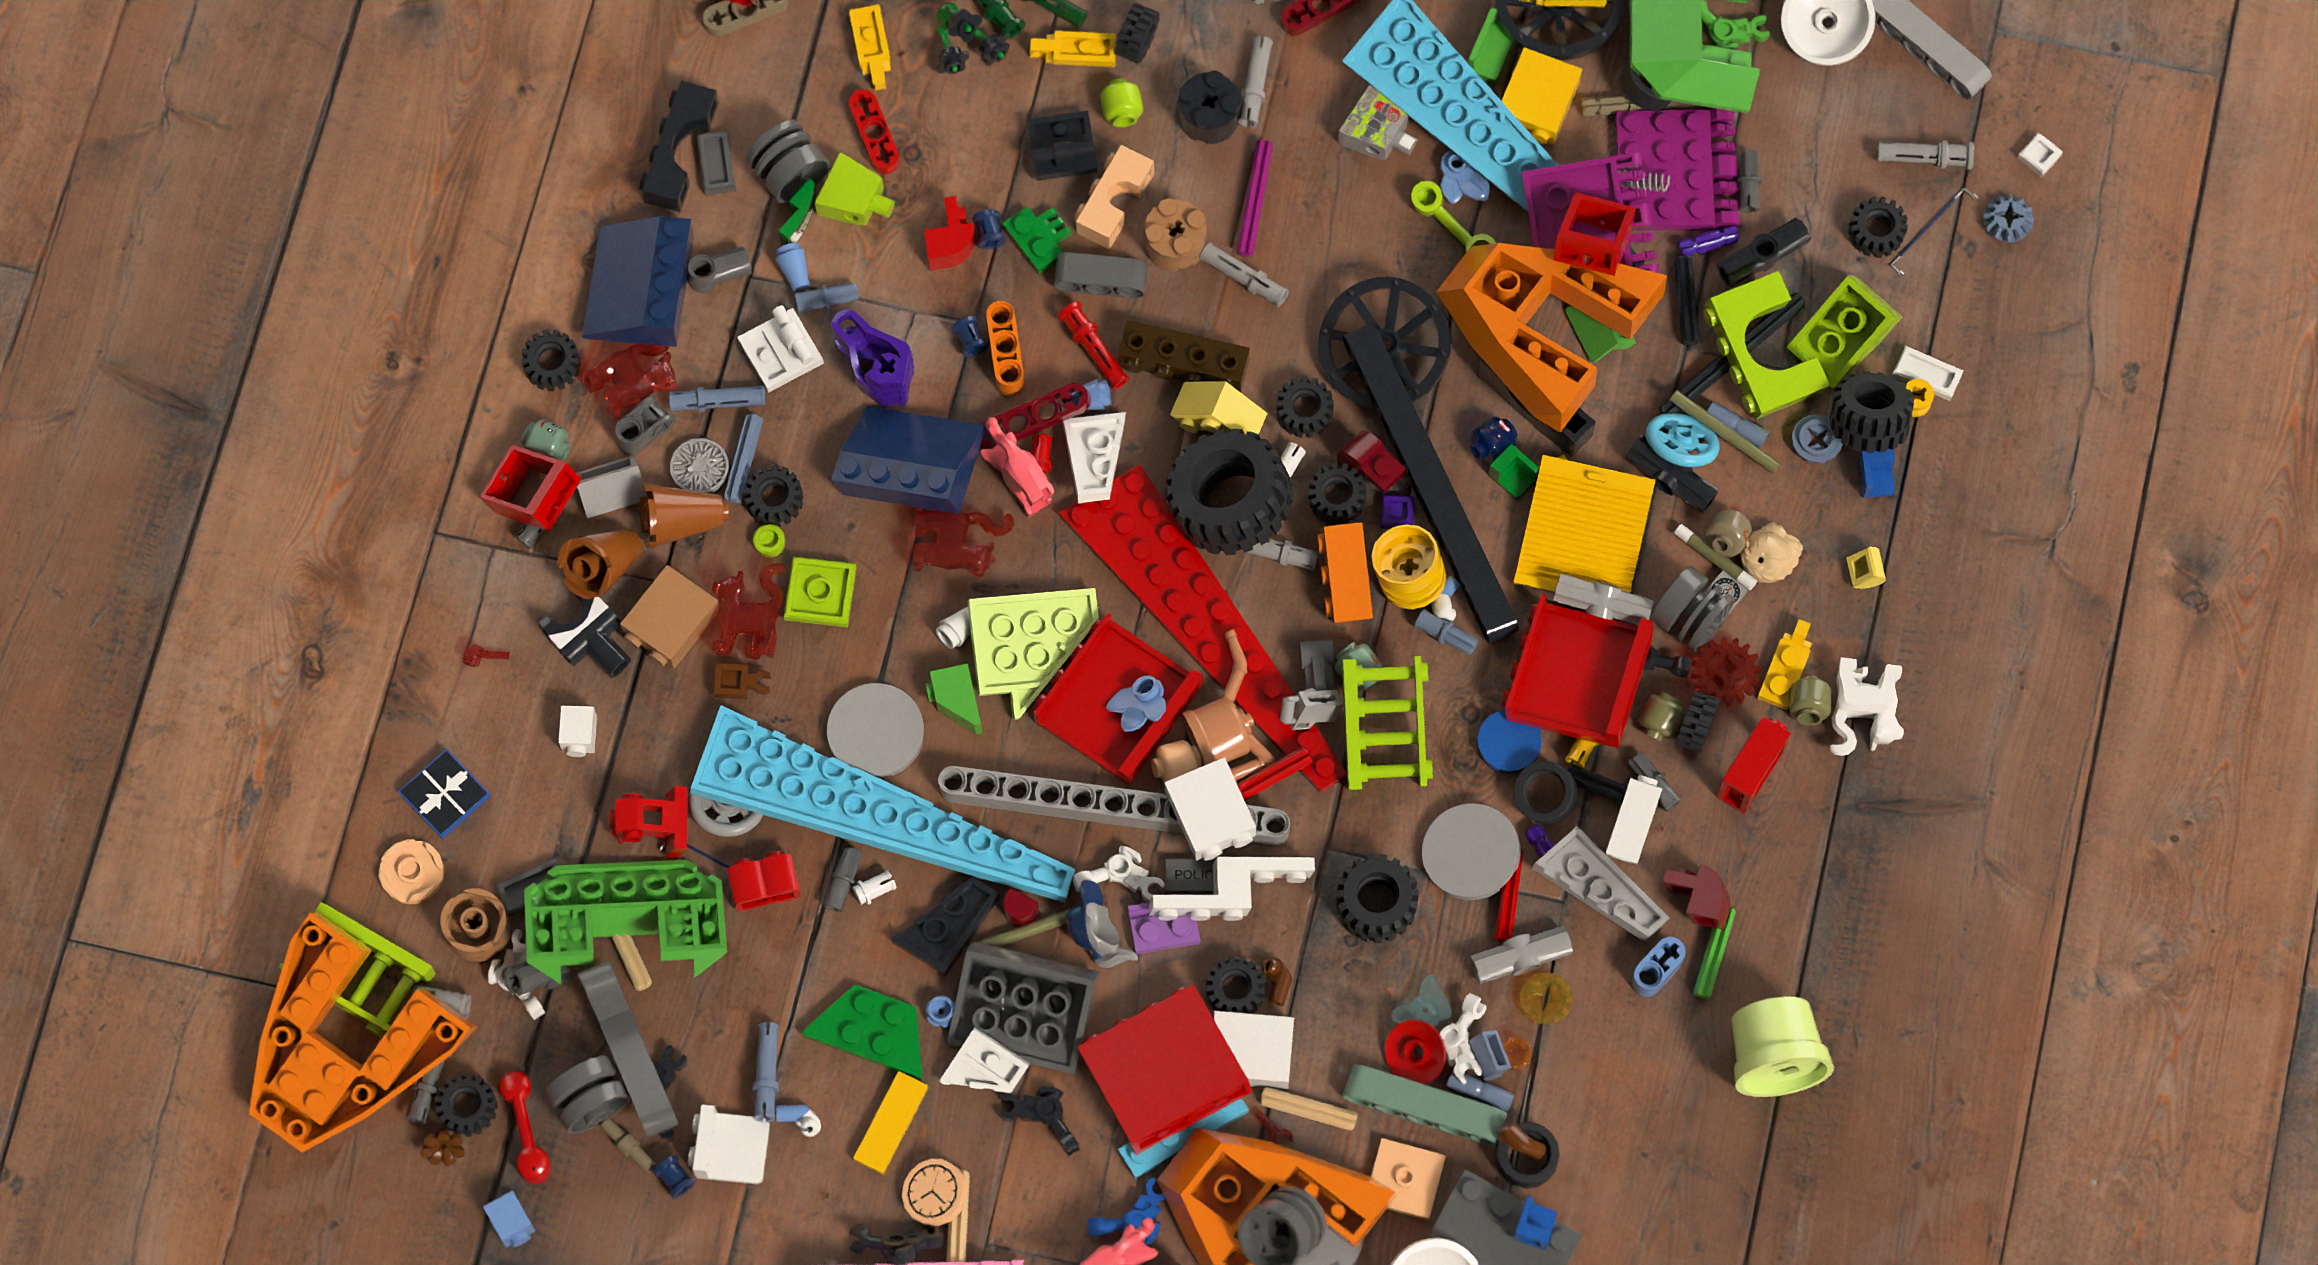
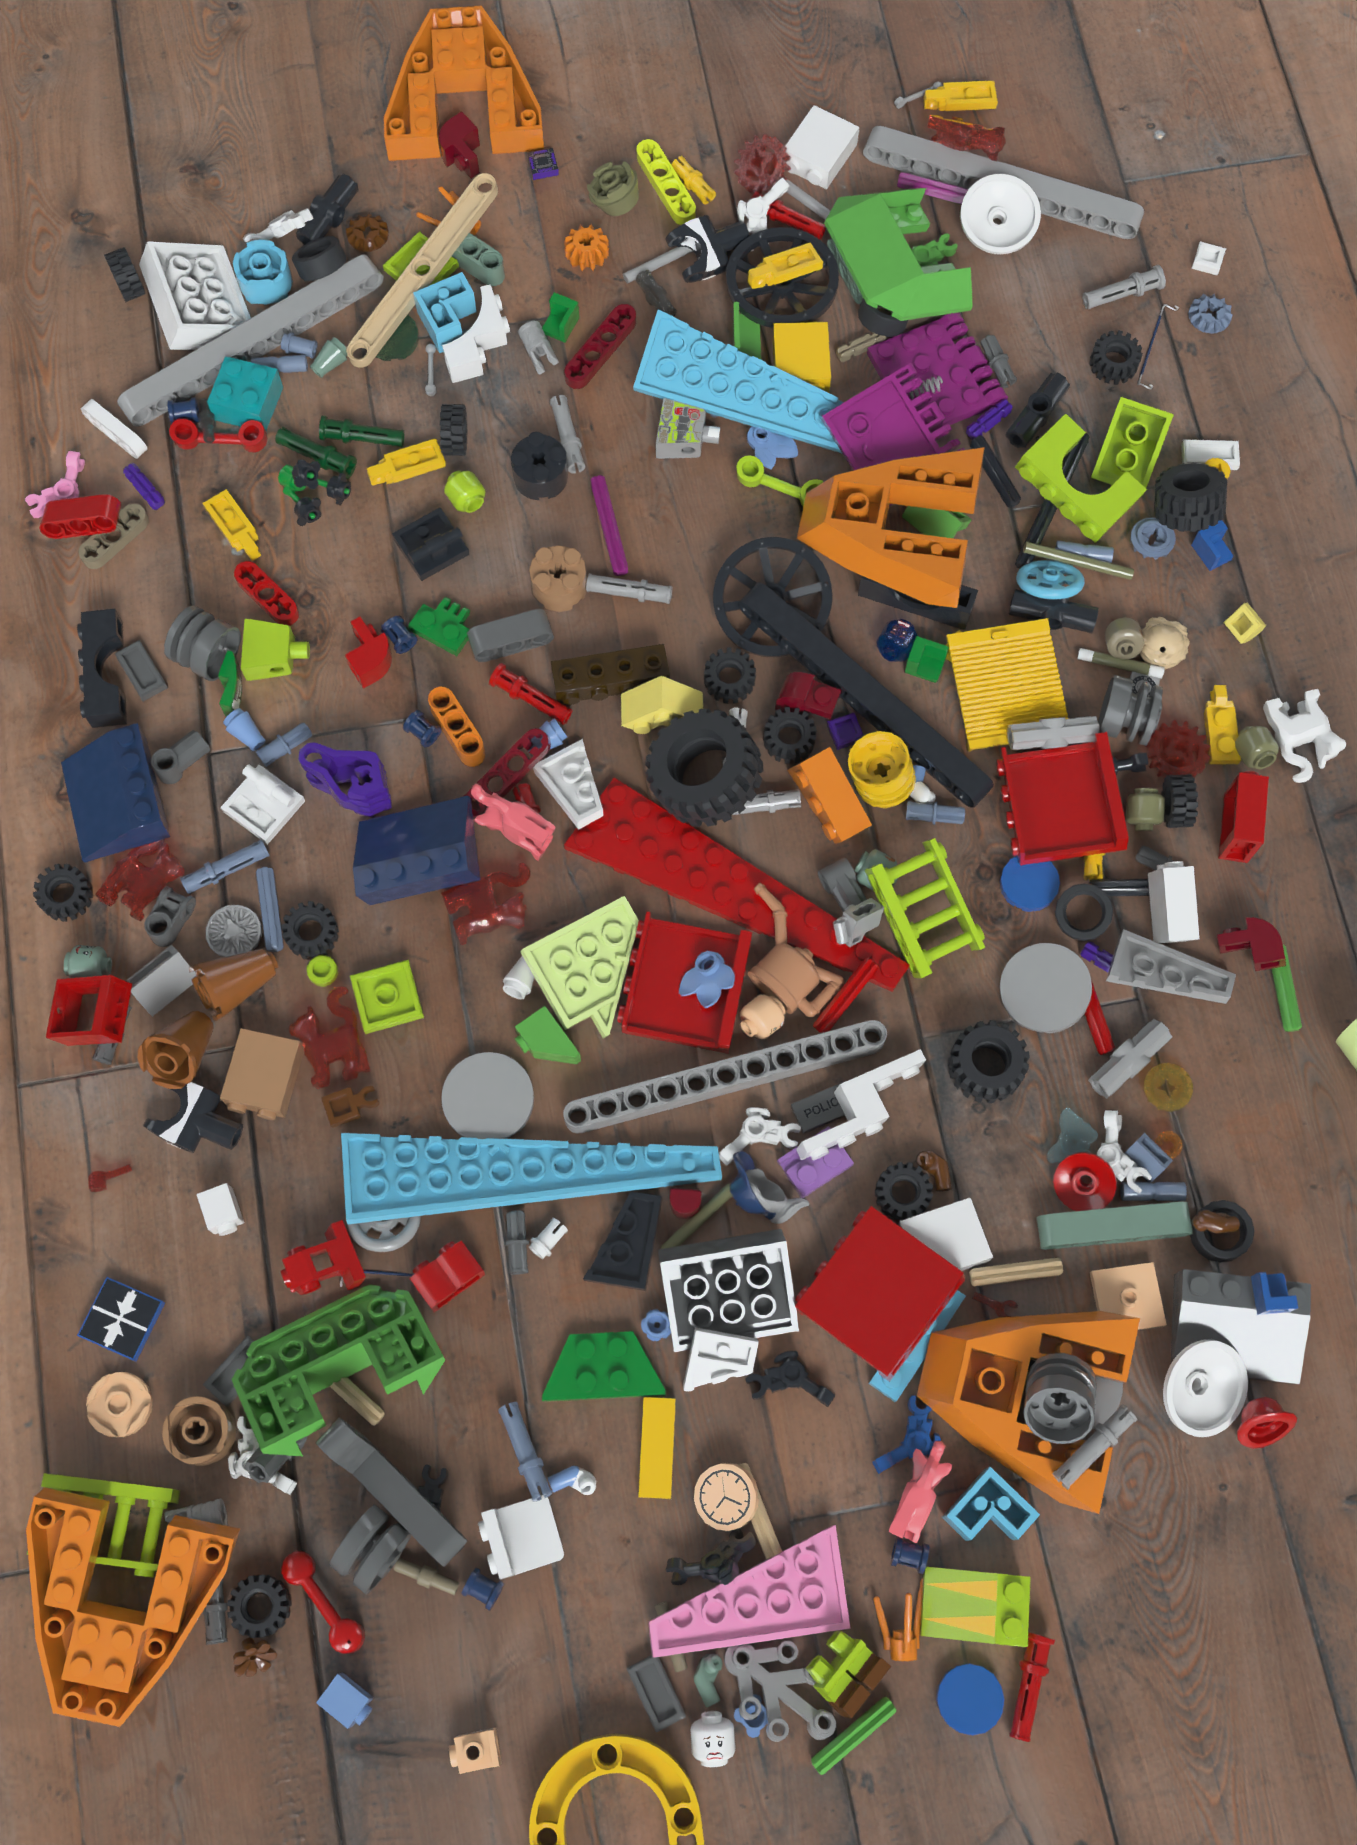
camera: 25 degrees left, 0 degrees up
(1124, 173) = (494, 545): light nougat arch -> none
(1210, 810) = (816, 1045): white brick -> none
(1603, 253) = (898, 451): red window -> none
(1651, 965) = (1252, 1024): medium blue beam -> none

